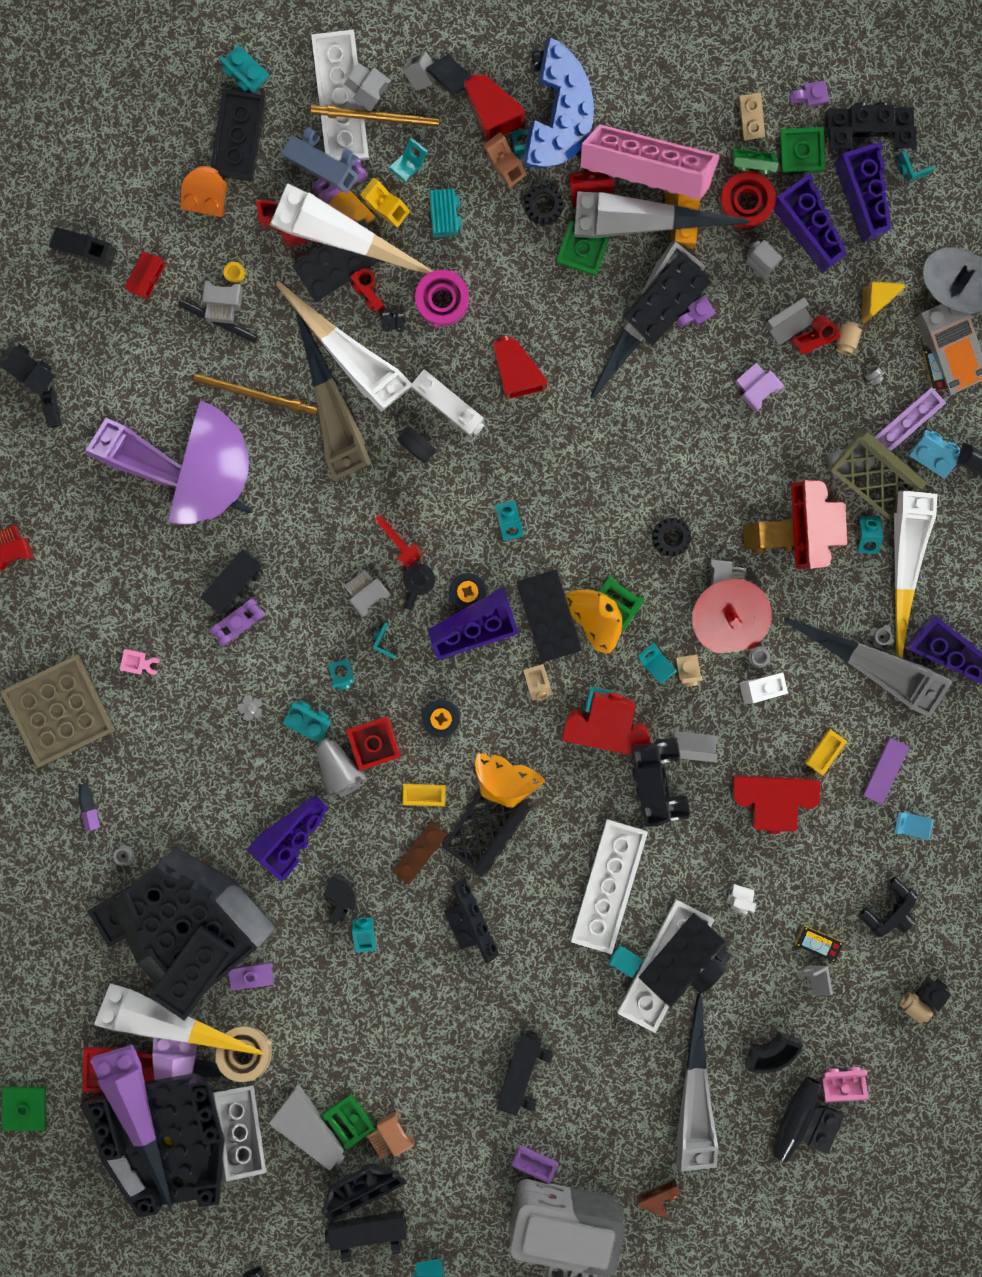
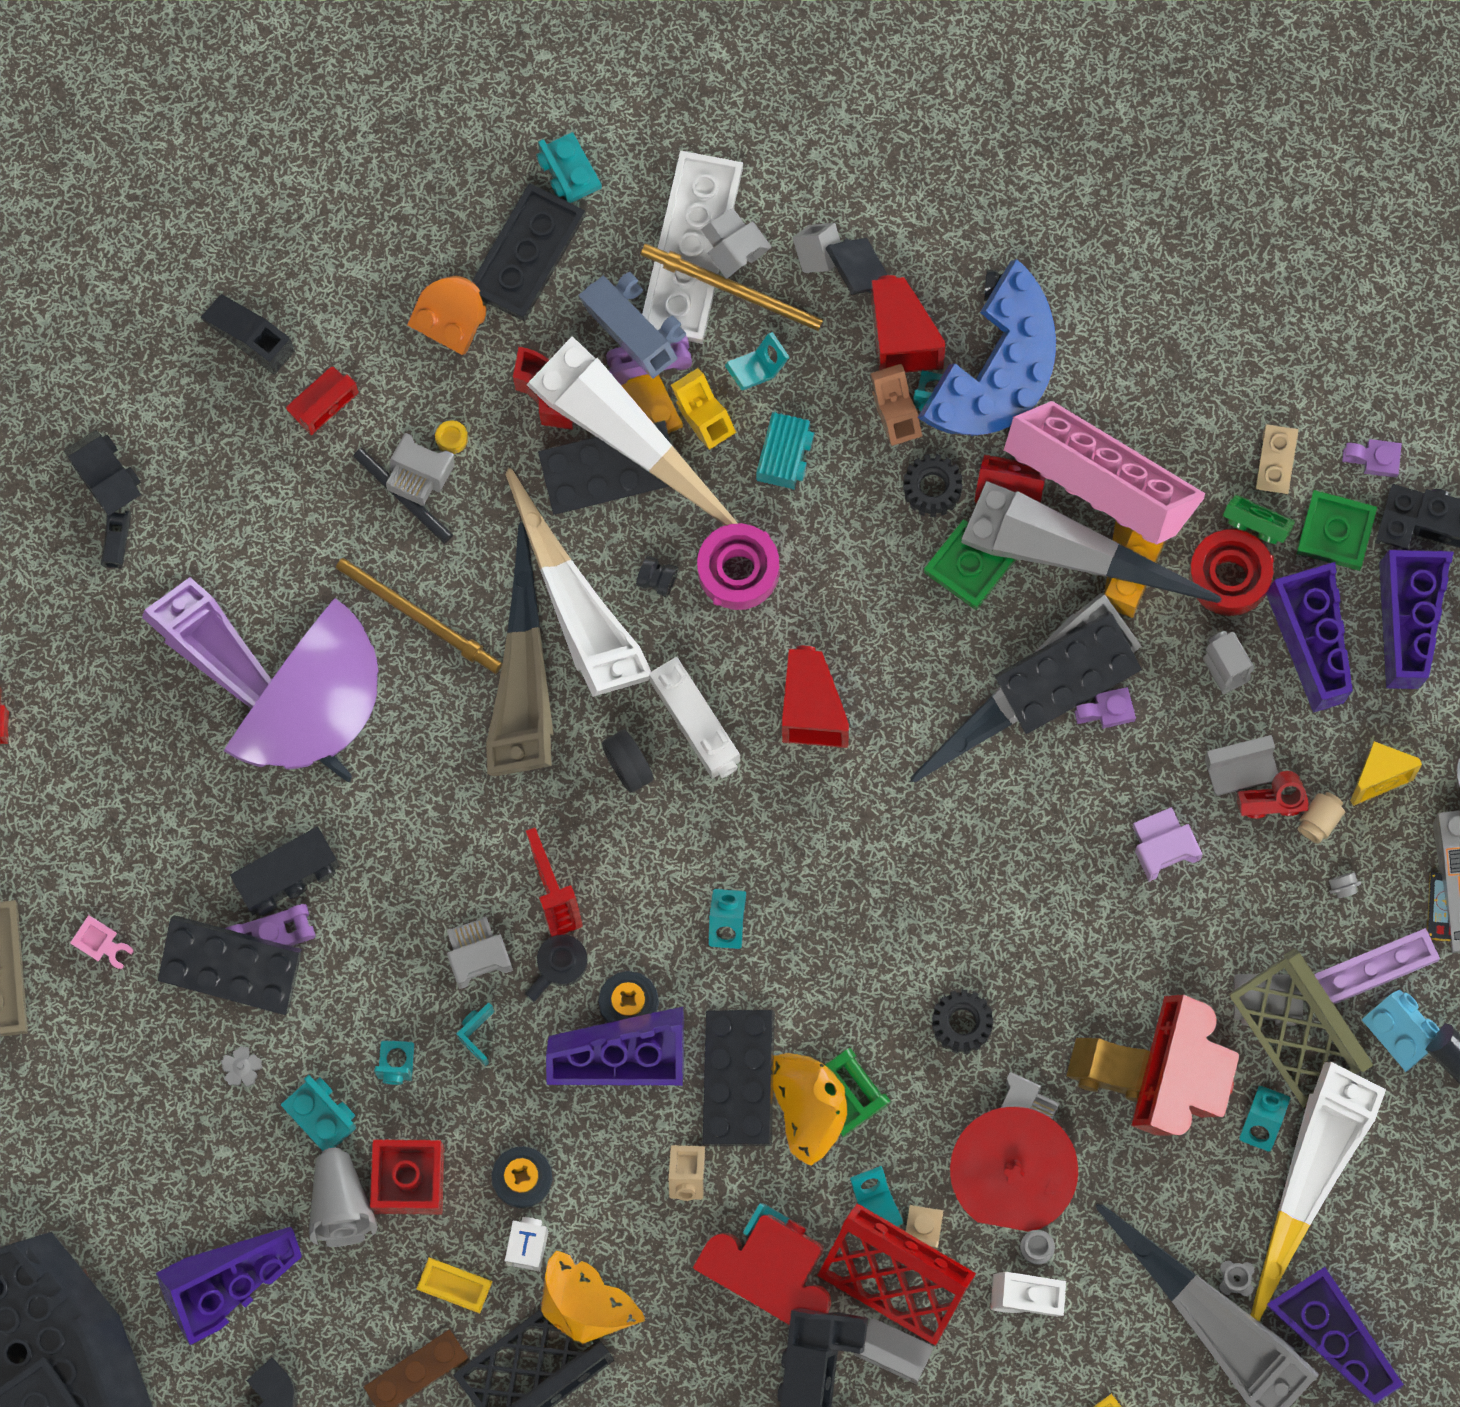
camera: 20 degrees right, 15 degrees down
(220, 650) = (229, 965): none -> black plate
(372, 300) = (636, 539): red plate -> none
(458, 757) = (526, 1244): none -> white brick
(686, 690) = (902, 1249): none -> red fence

